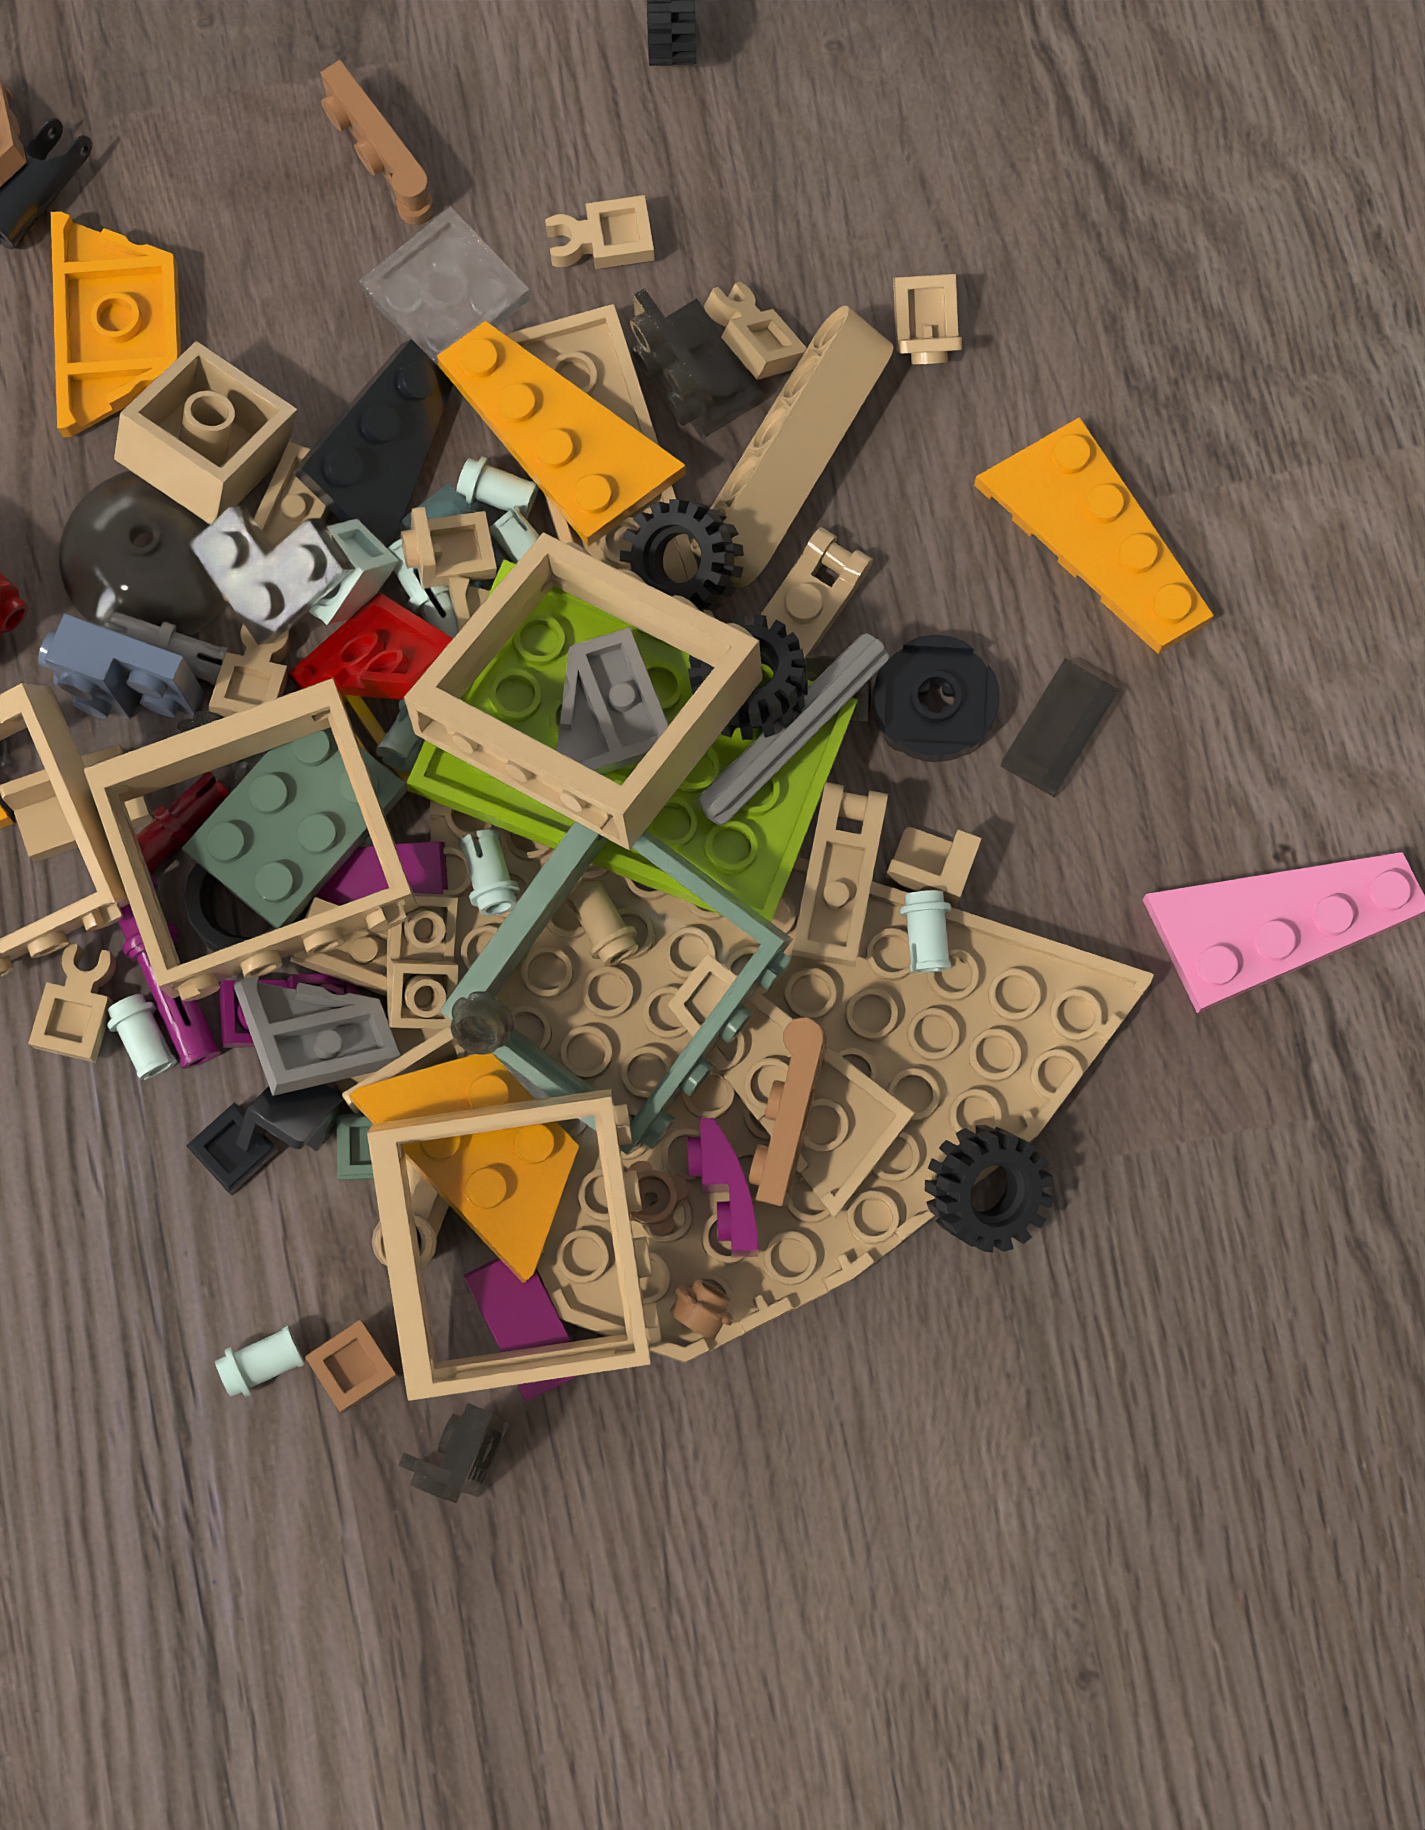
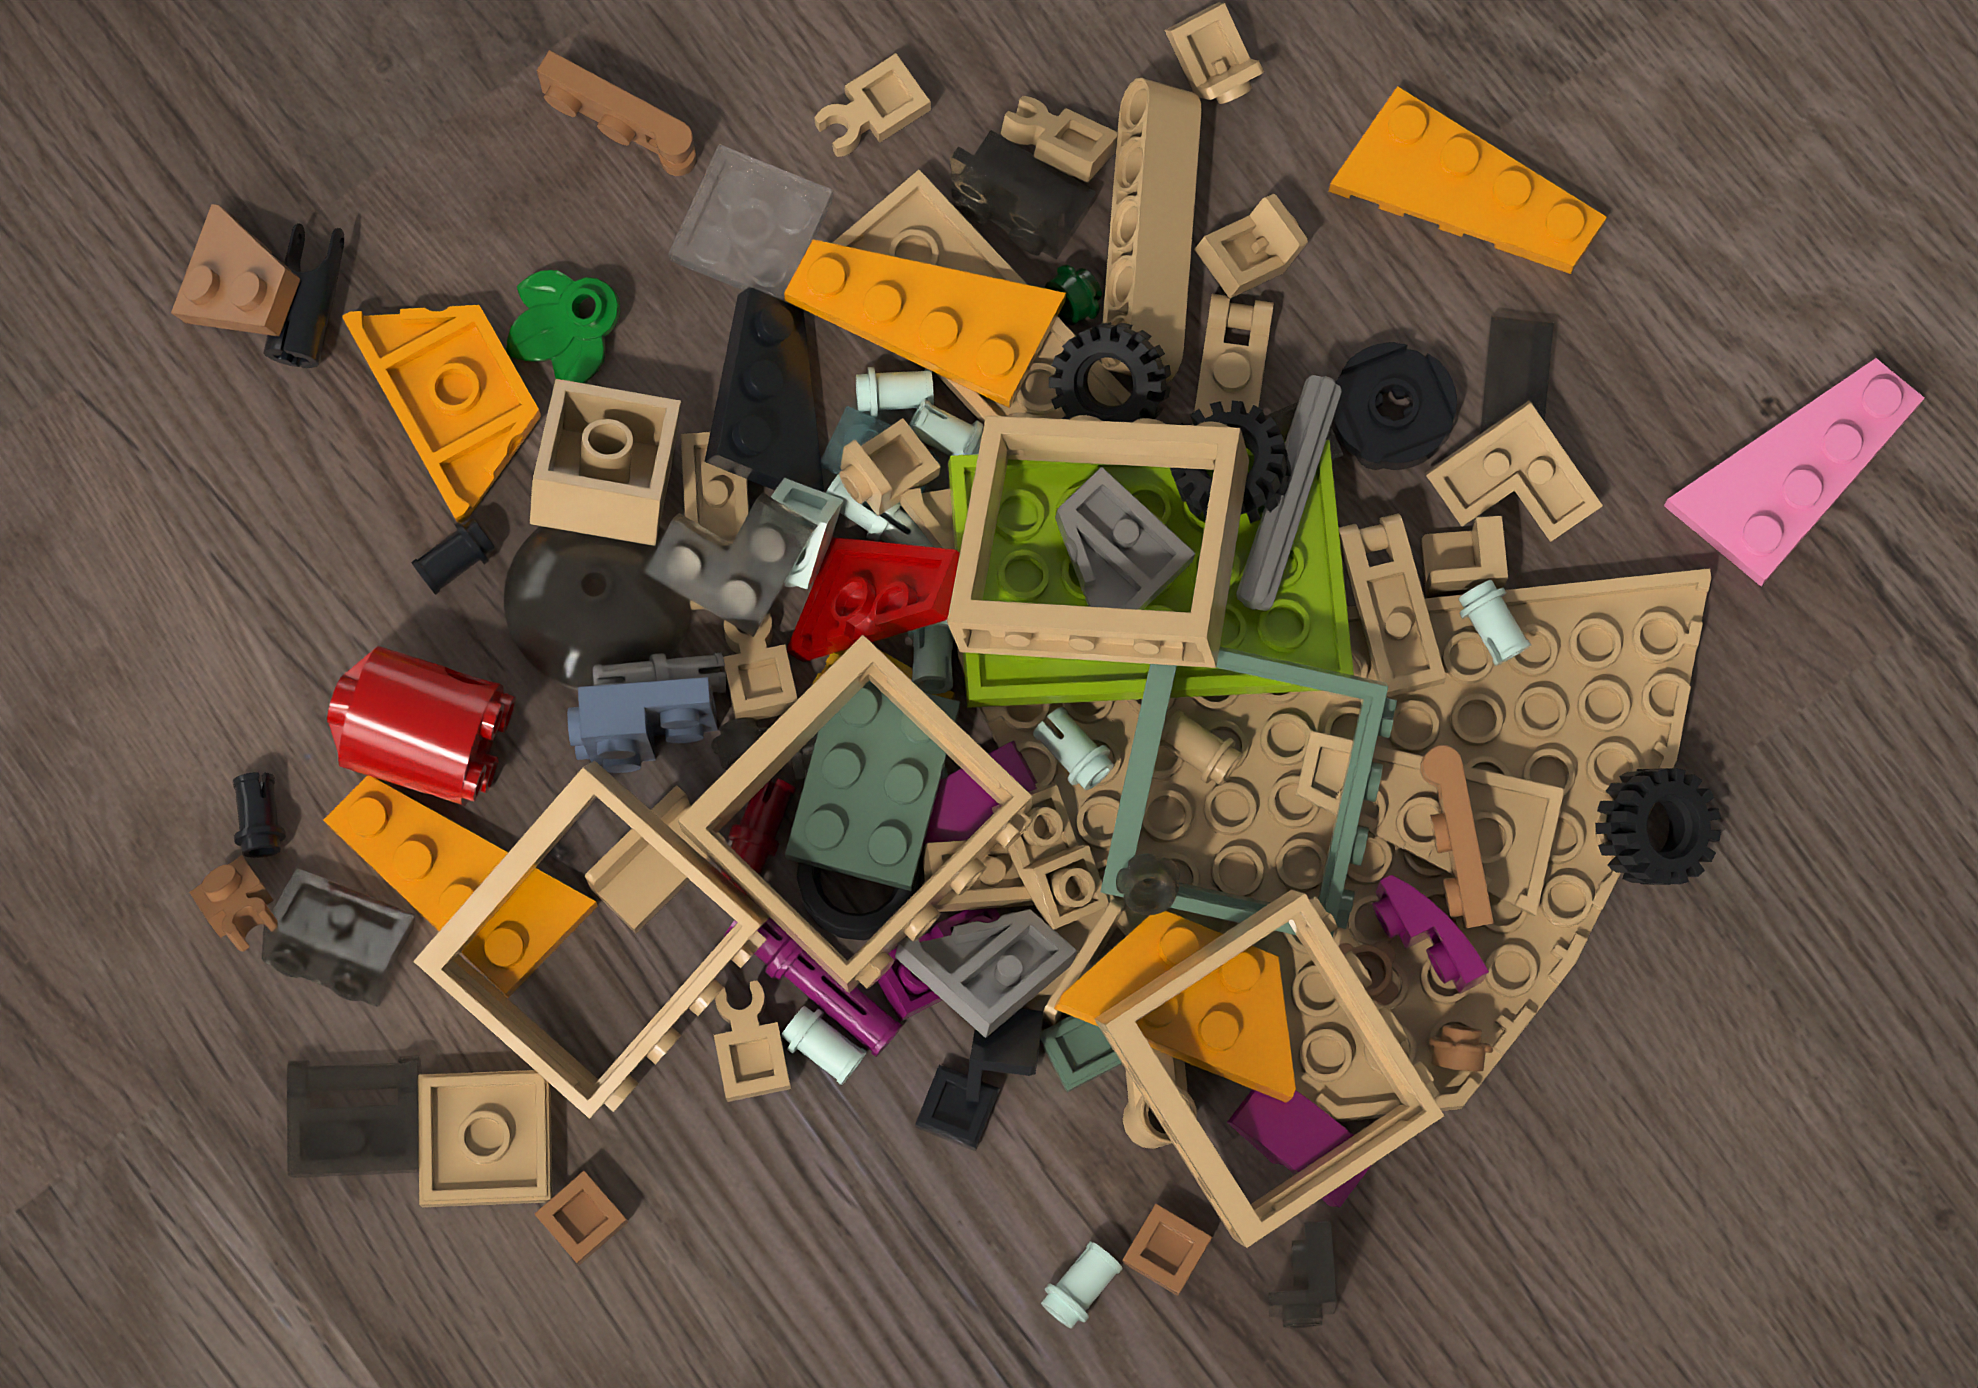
camera: 25 degrees left, 0 degrees up
(43, 461) = (454, 555): none -> black pin
(234, 306) = (555, 329): none -> green plate
(702, 475) = (1081, 293): none -> dark green plate
(876, 502) = (1253, 247): none -> tan bracket
(1028, 795) = (1521, 458): none -> tan plate

